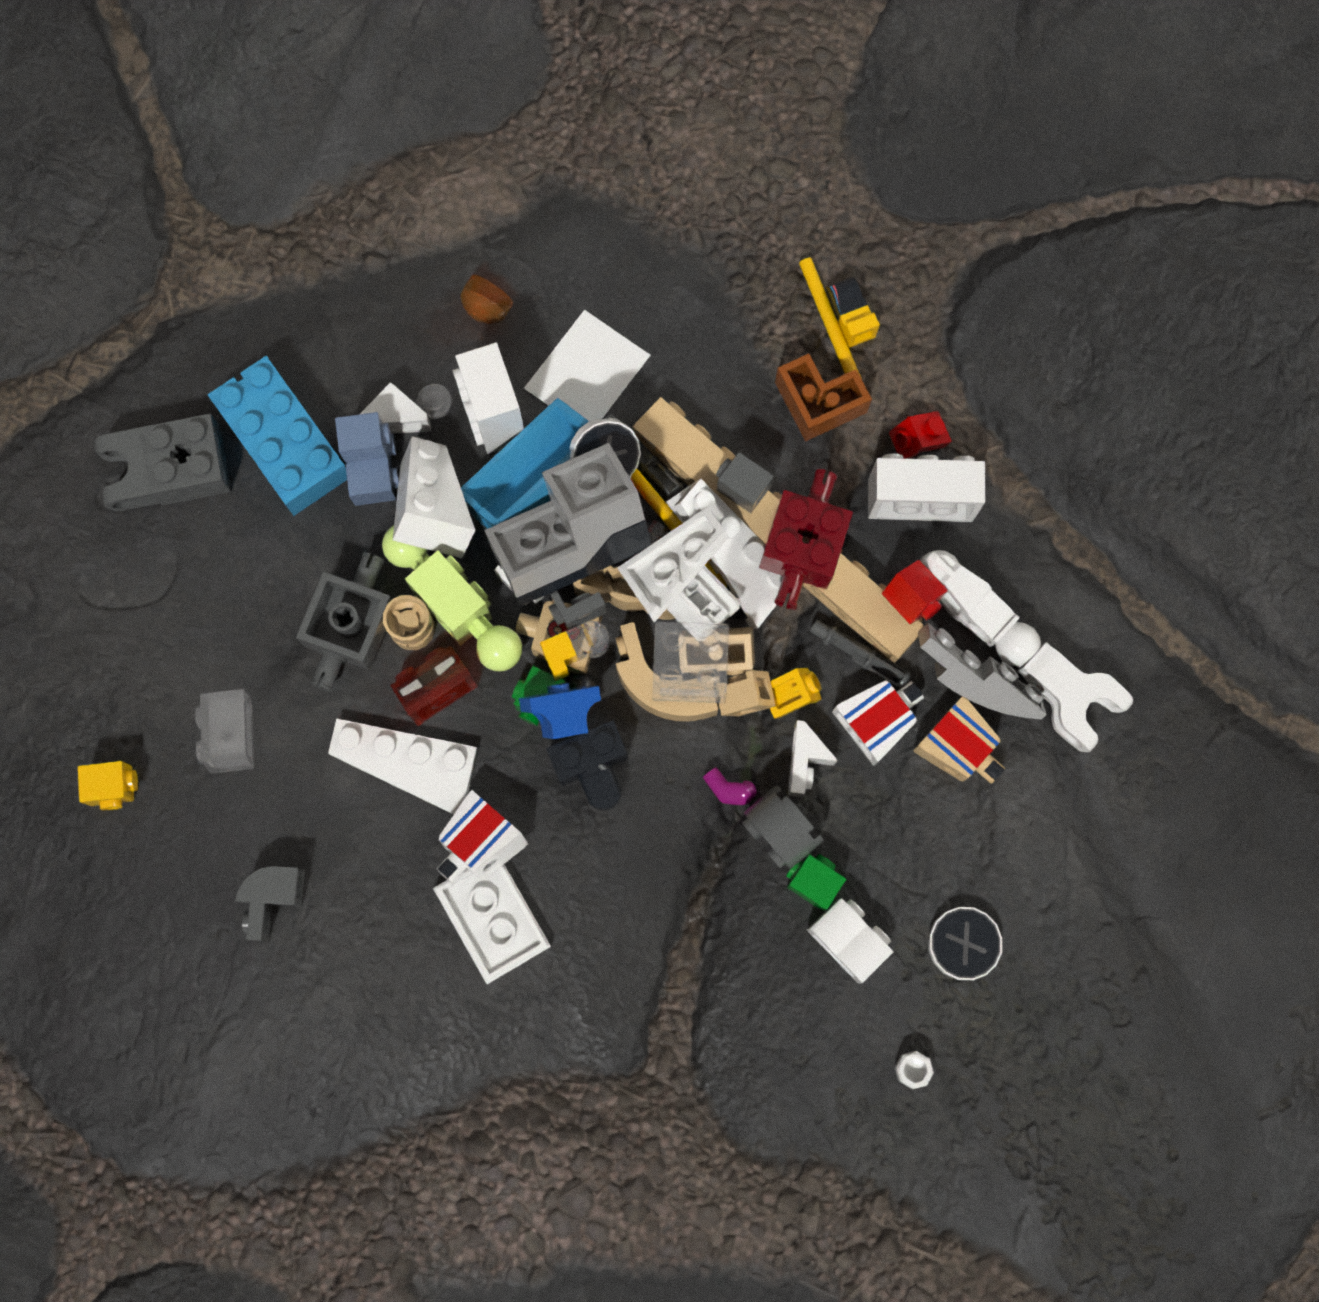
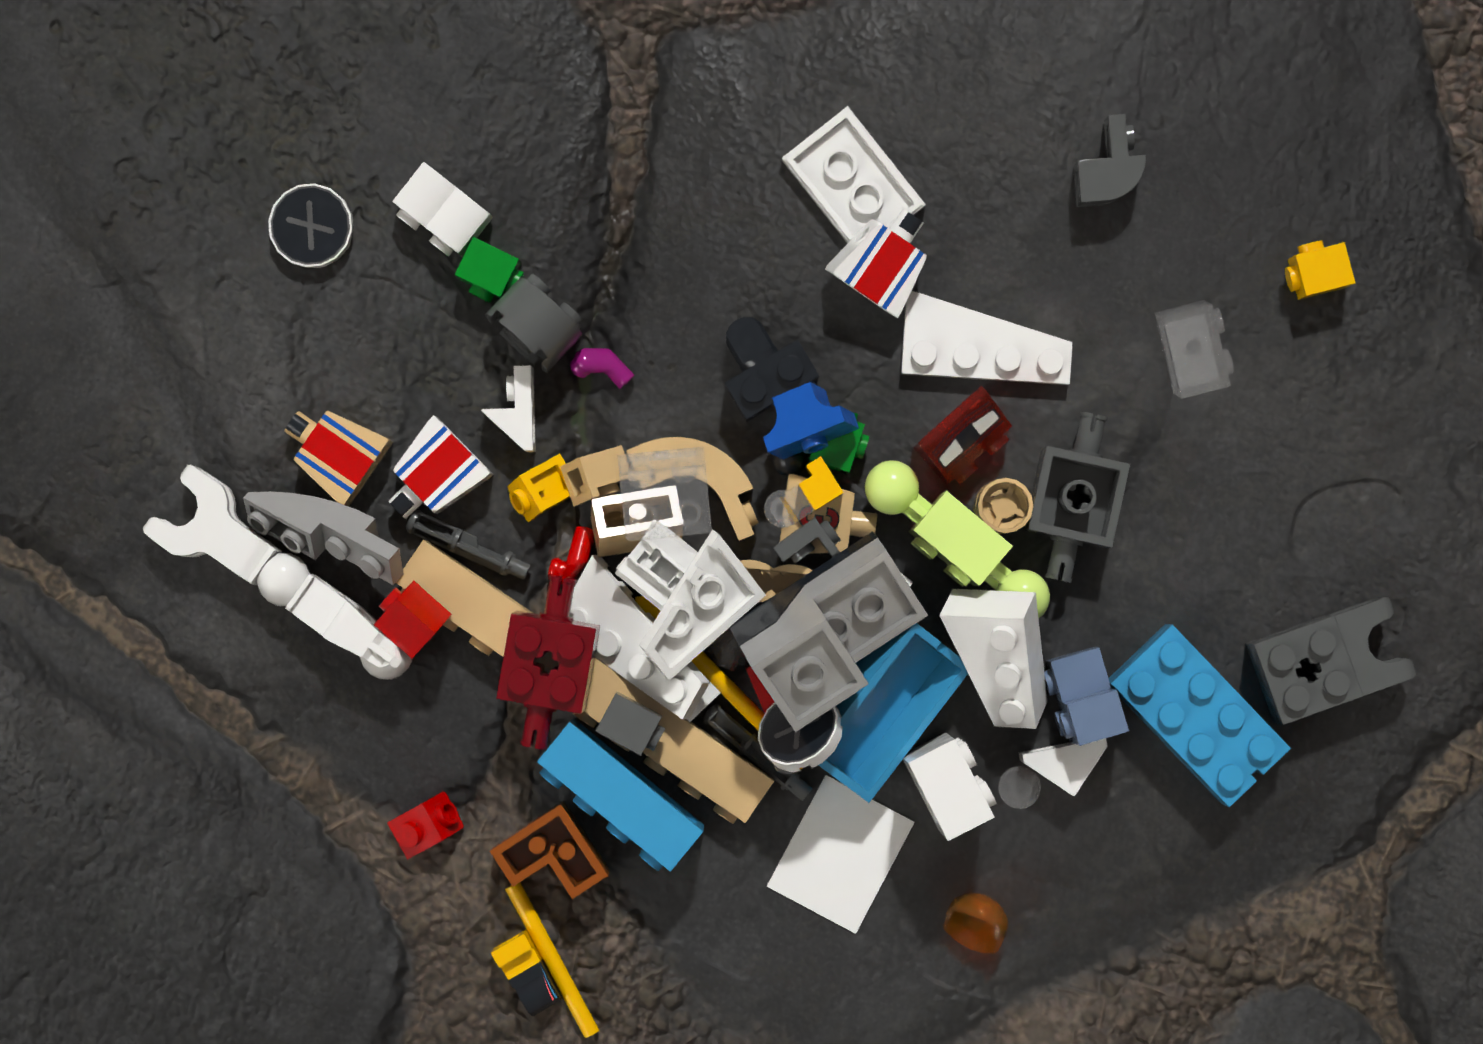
camera: 170 degrees right, 10 degrees up
(756, 428) = (621, 795): none -> dark azure piece
(770, 631) = (577, 556): none -> red arm
(914, 1069) = (354, 77): white tile -> none
(926, 488) = (412, 752): white brick -> none

